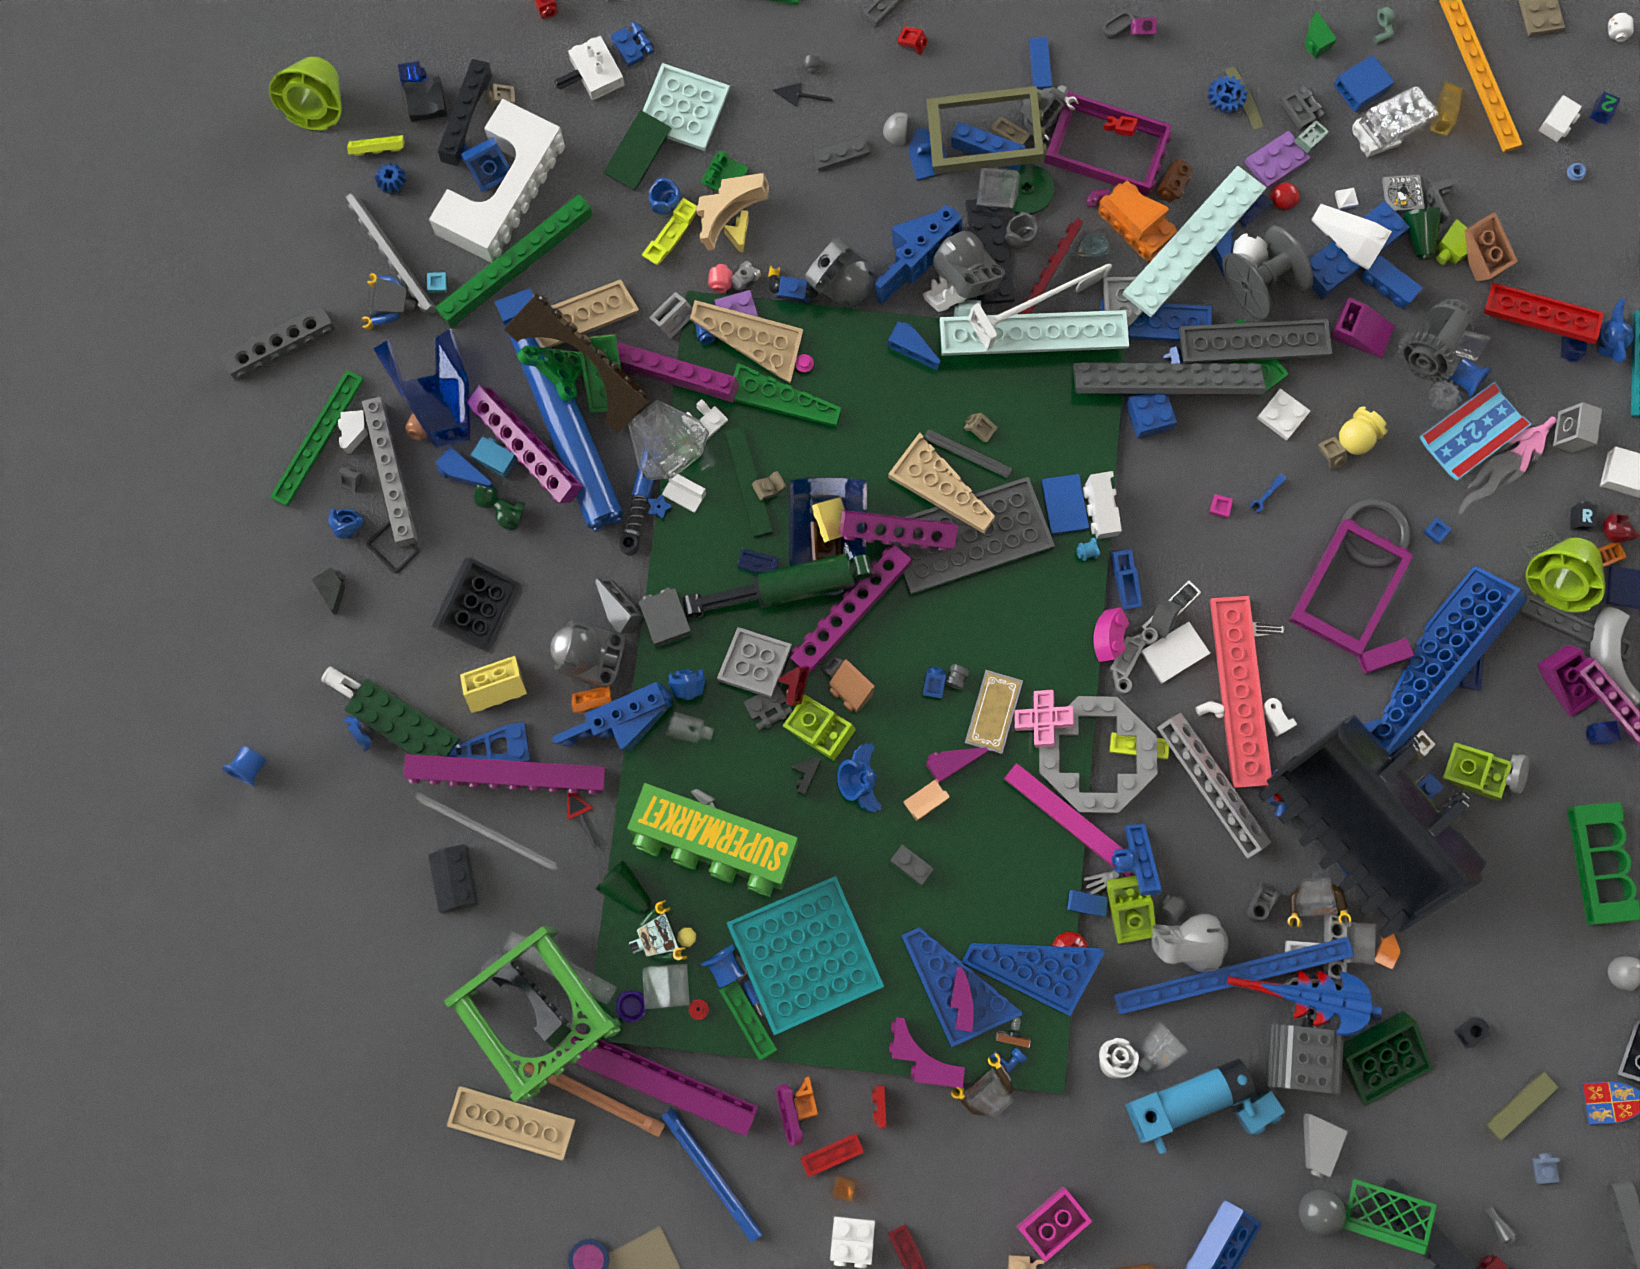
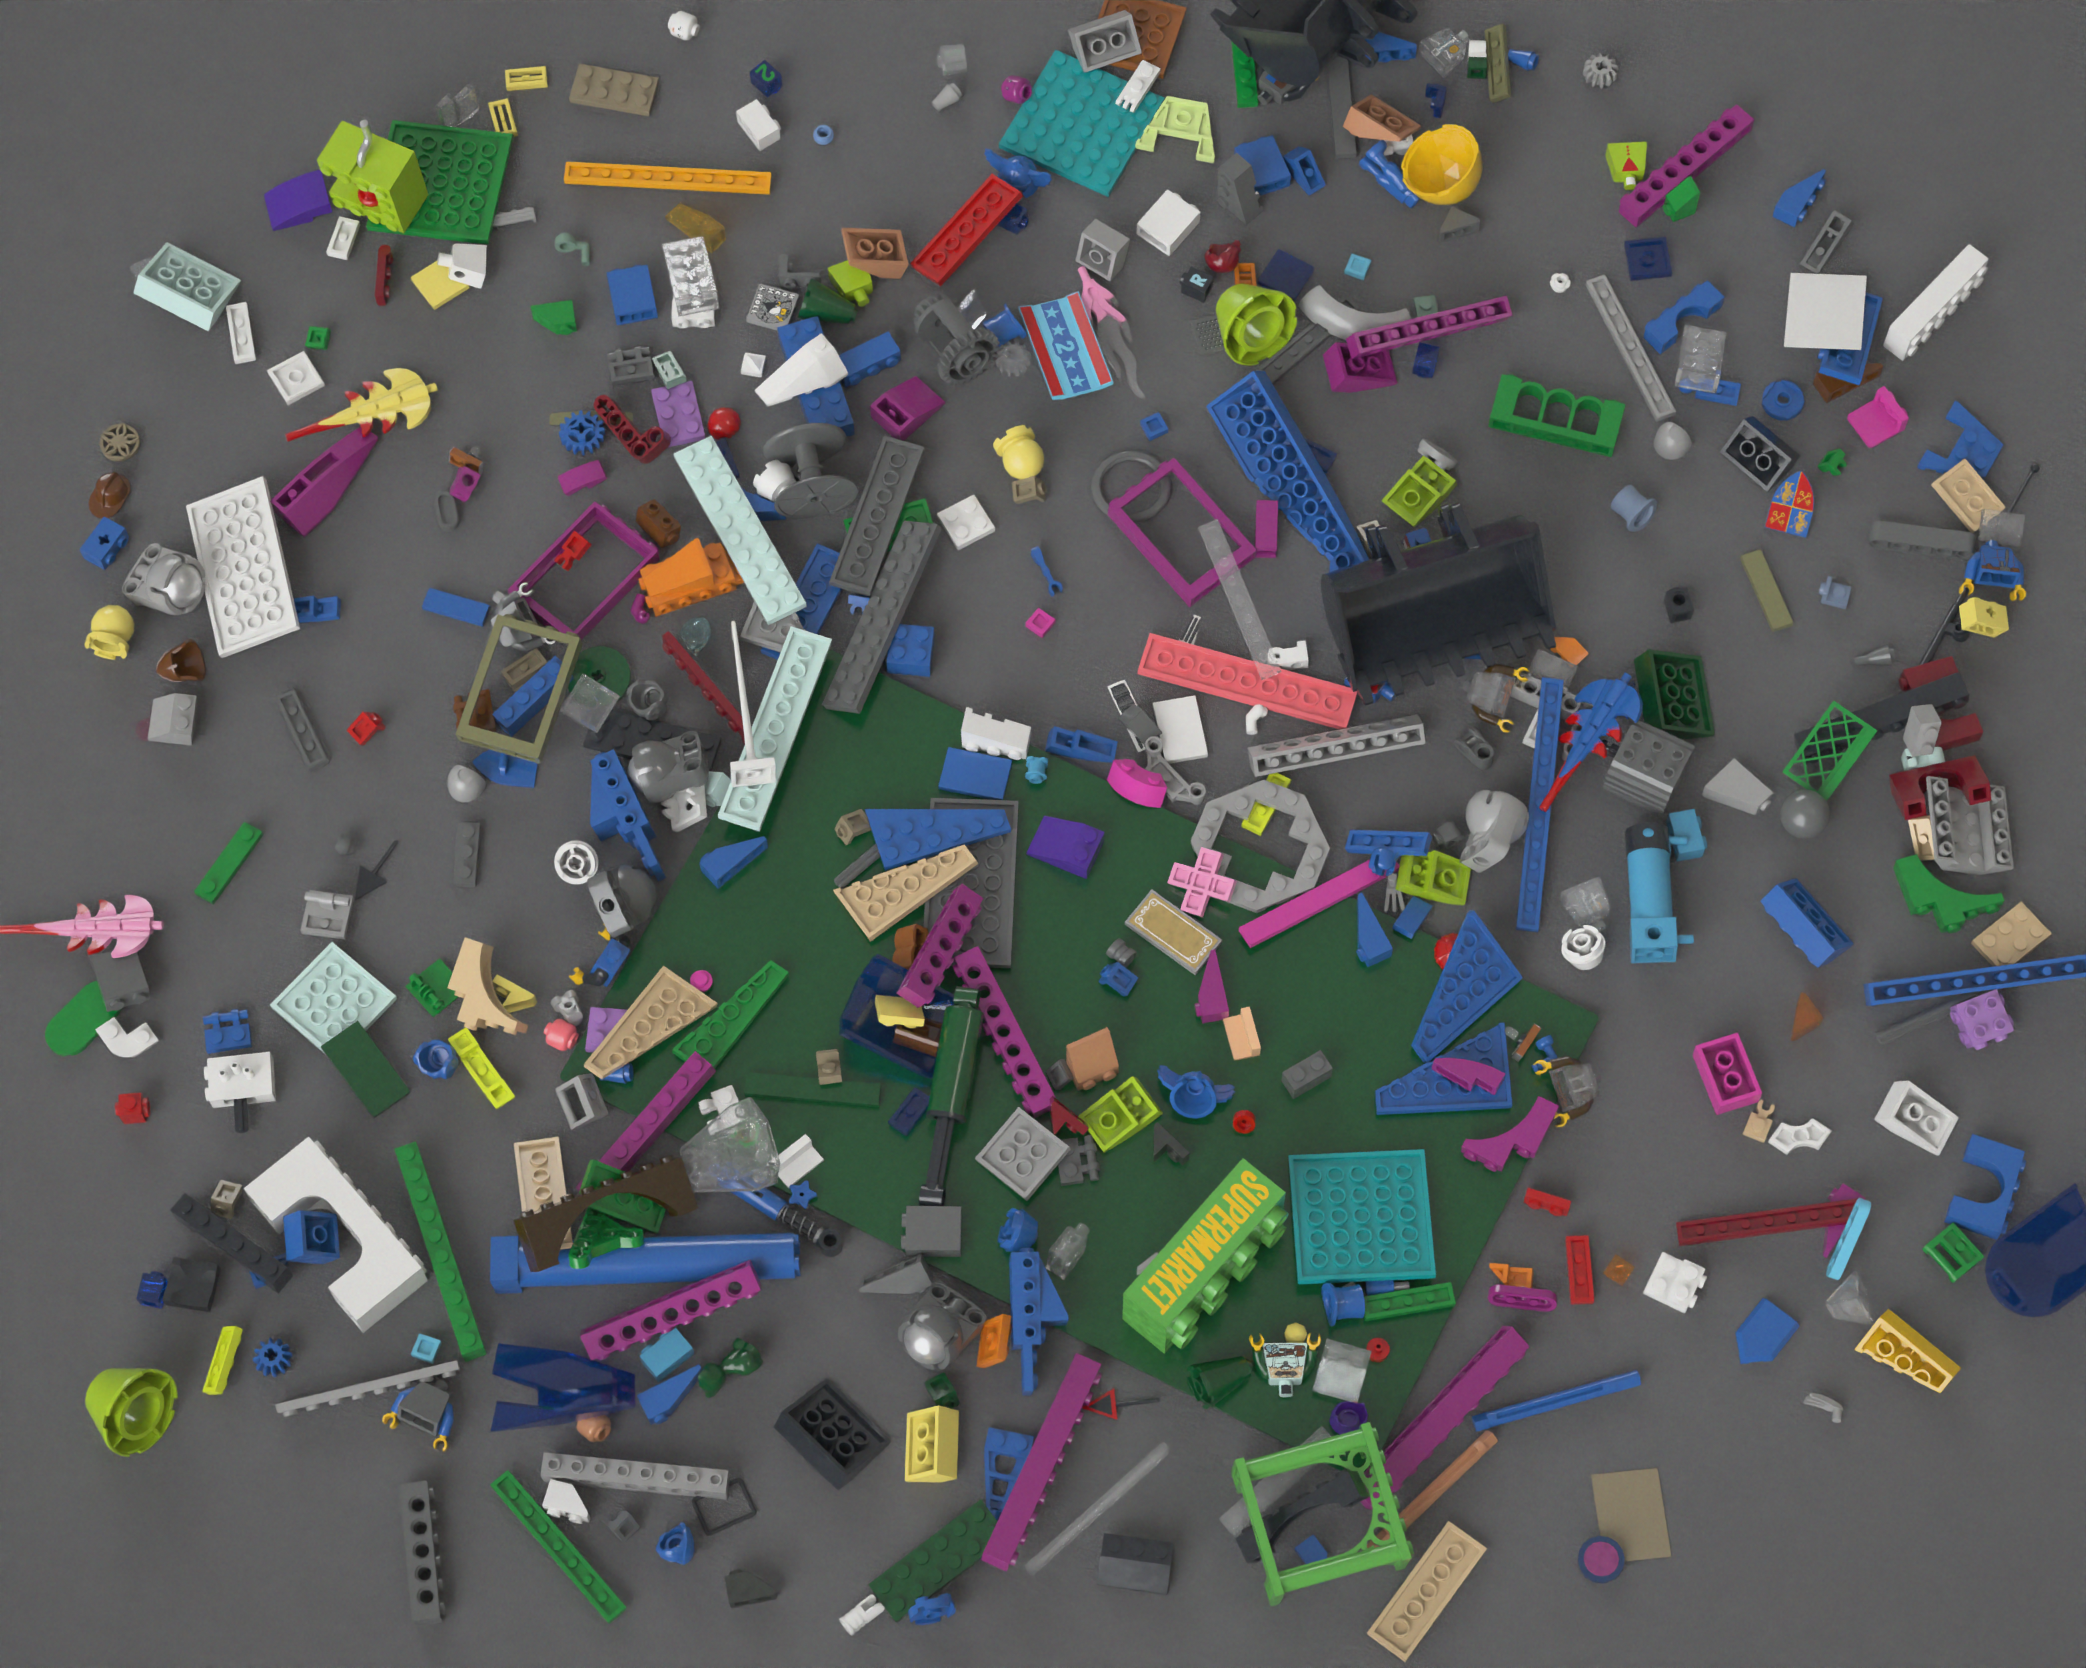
camera: 65 degrees left, 10 degrees down
(509, 1019) = (1311, 1550): none -> blue tile
(539, 675) = (942, 1391): none -> dark green bracket
(751, 73) = (327, 914): none -> light grey plate
(851, 829) = (1244, 1121): none -> red tile
(863, 232) = (576, 862): none -> white cone
(896, 505) = (908, 944): none -> dark orange brick
(962, 114) = (482, 714): none -> reddish brown plate
(993, 480) = (922, 833): none -> blue wing
(1033, 599) = (1067, 845): none -> dark purple slope
(1053, 874) = (1371, 939): none -> blue slope
(1165, 21) = (466, 459): none -> dark orange piece
(1190, 109) = (582, 476): none -> magenta slope
(1238, 142) = (626, 427): none -> dark red beam
(1309, 656) = (1239, 599): none -> clear tile
(1546, 961) = (1634, 508): none -> sand blue piece

